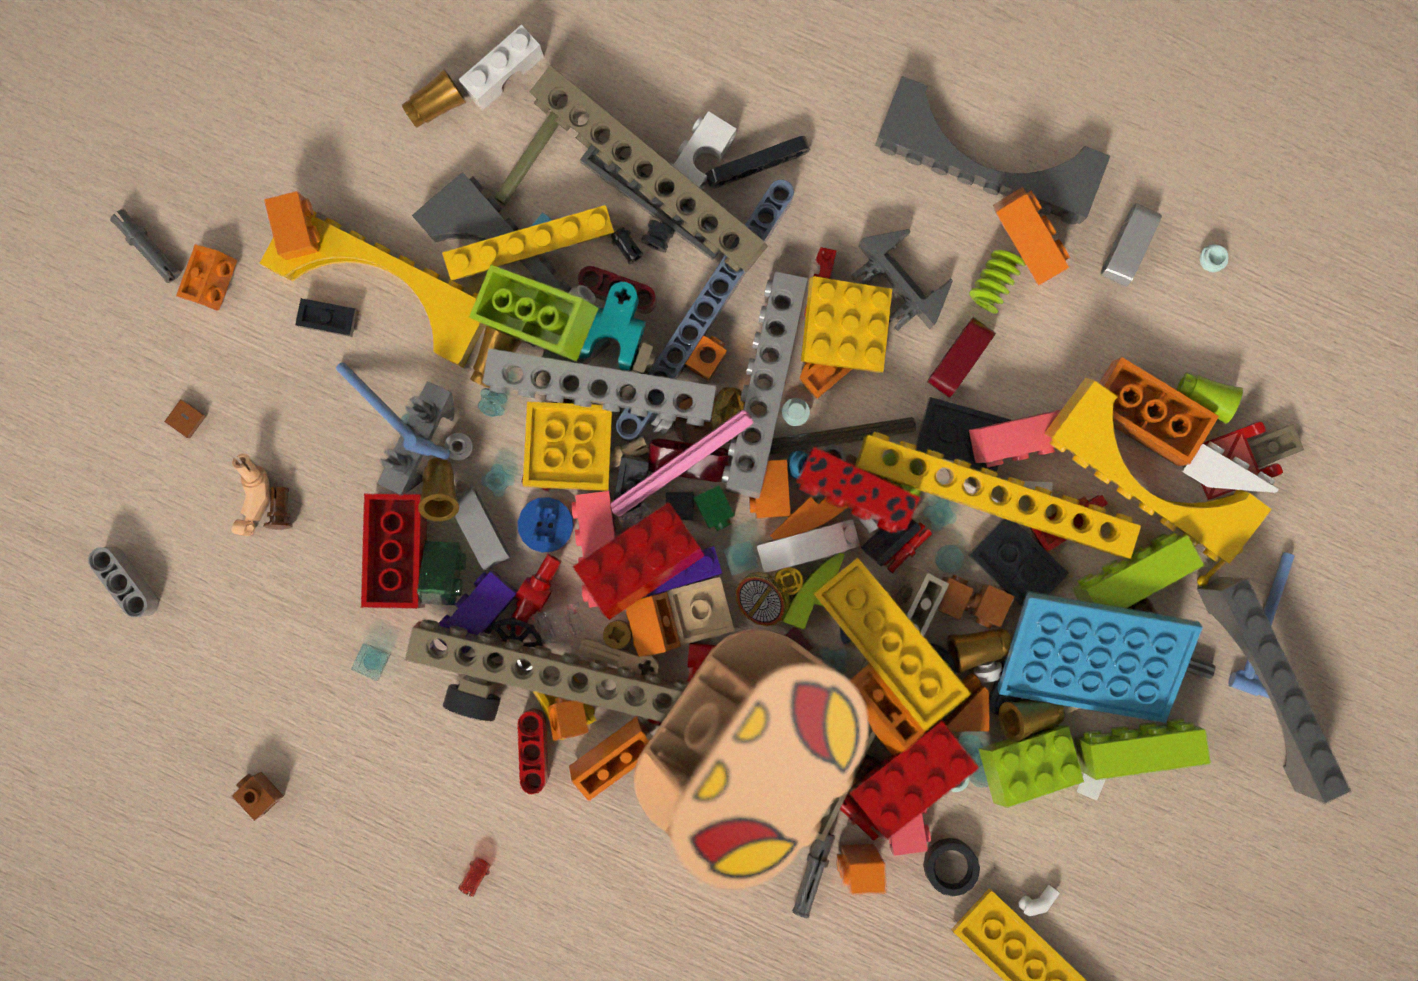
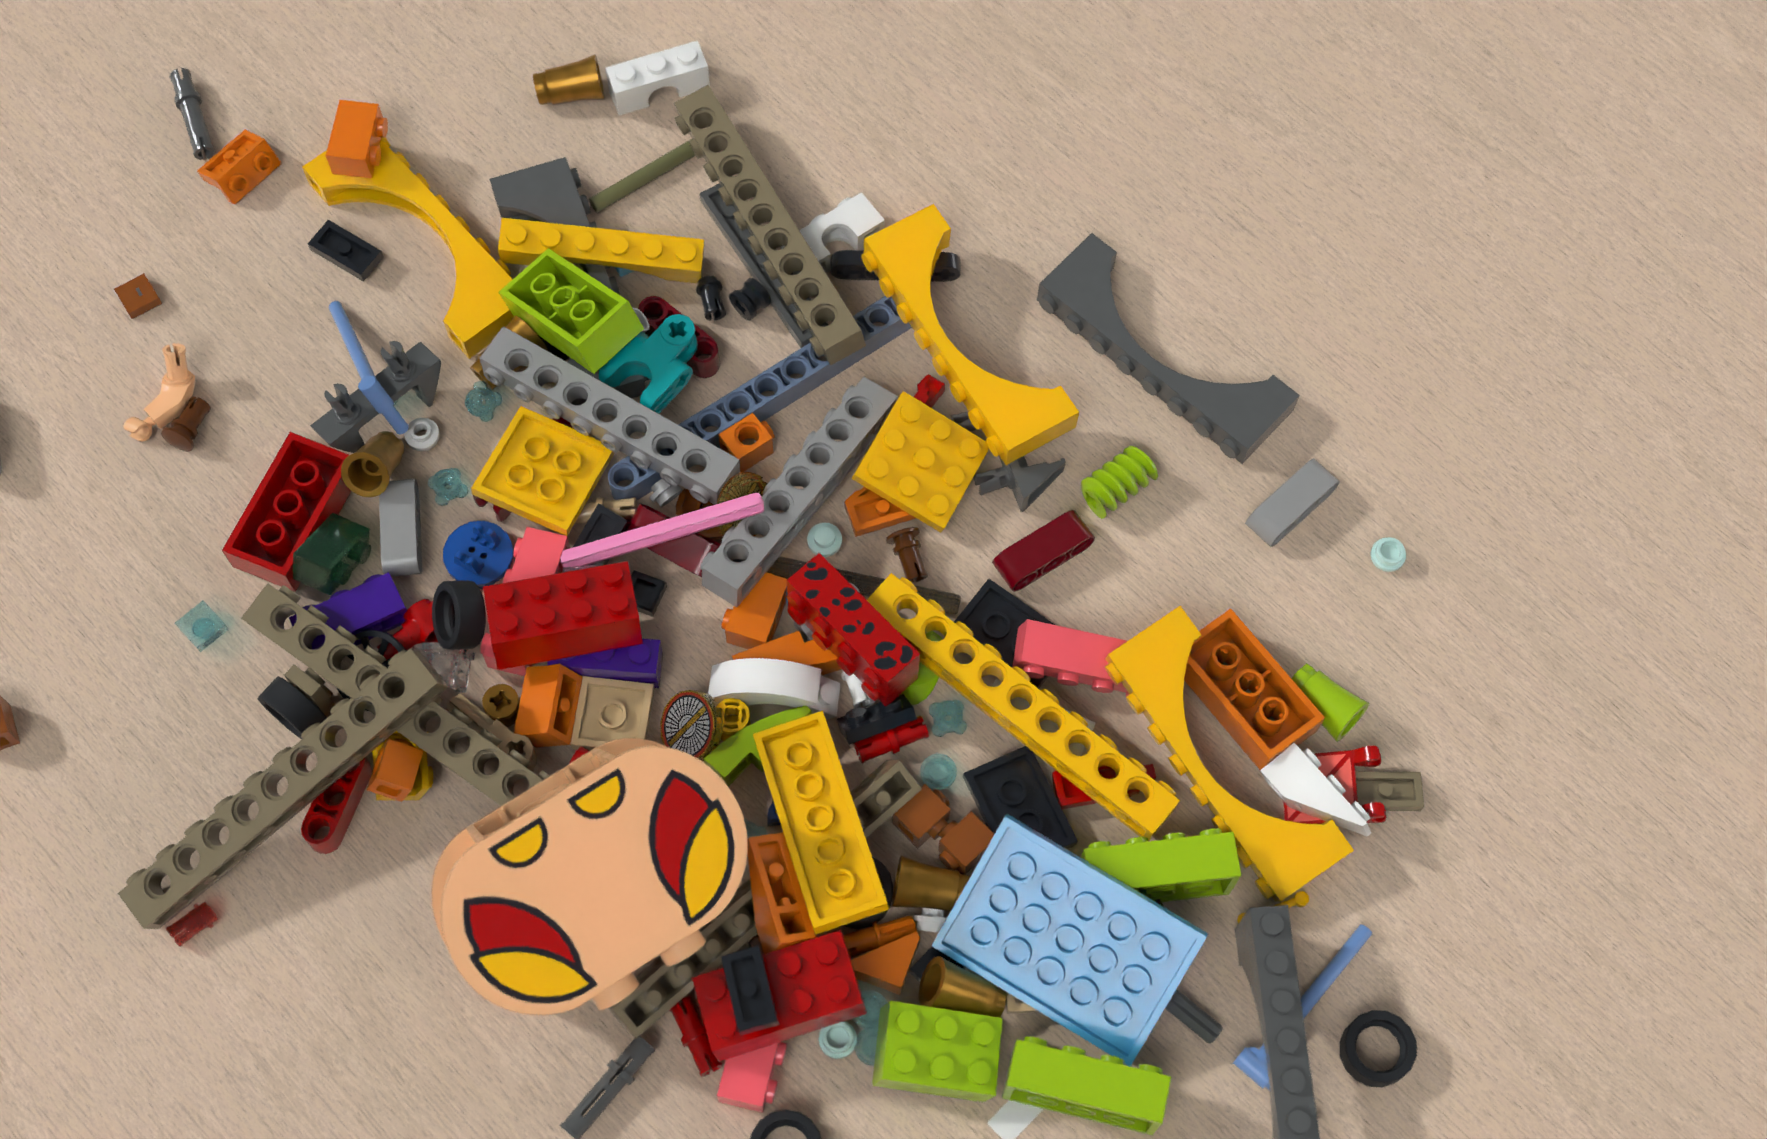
camera: 20 degrees right, 20 degrees down
(442, 877) = (144, 890): none -> dark tan brick
(560, 589) = (458, 614): none -> black tyre
(610, 759) = (415, 842): orange brick -> none
(644, 359) = (673, 405): dark tan plate -> none
(715, 508) = (680, 600): dark green brick -> none
(740, 558) = (687, 673): clear light blue plate -> none
(861, 397) = (907, 549): none -> reddish brown pin
(861, 869) = (667, 1085): orange brick -> none
(899, 263) = (1009, 413): none -> yellow arch
(899, 794) = (749, 990): none -> black plate
(1032, 235) = (1173, 438): orange brick -> none
(1348, 638) = (1398, 1028): none -> black tyre

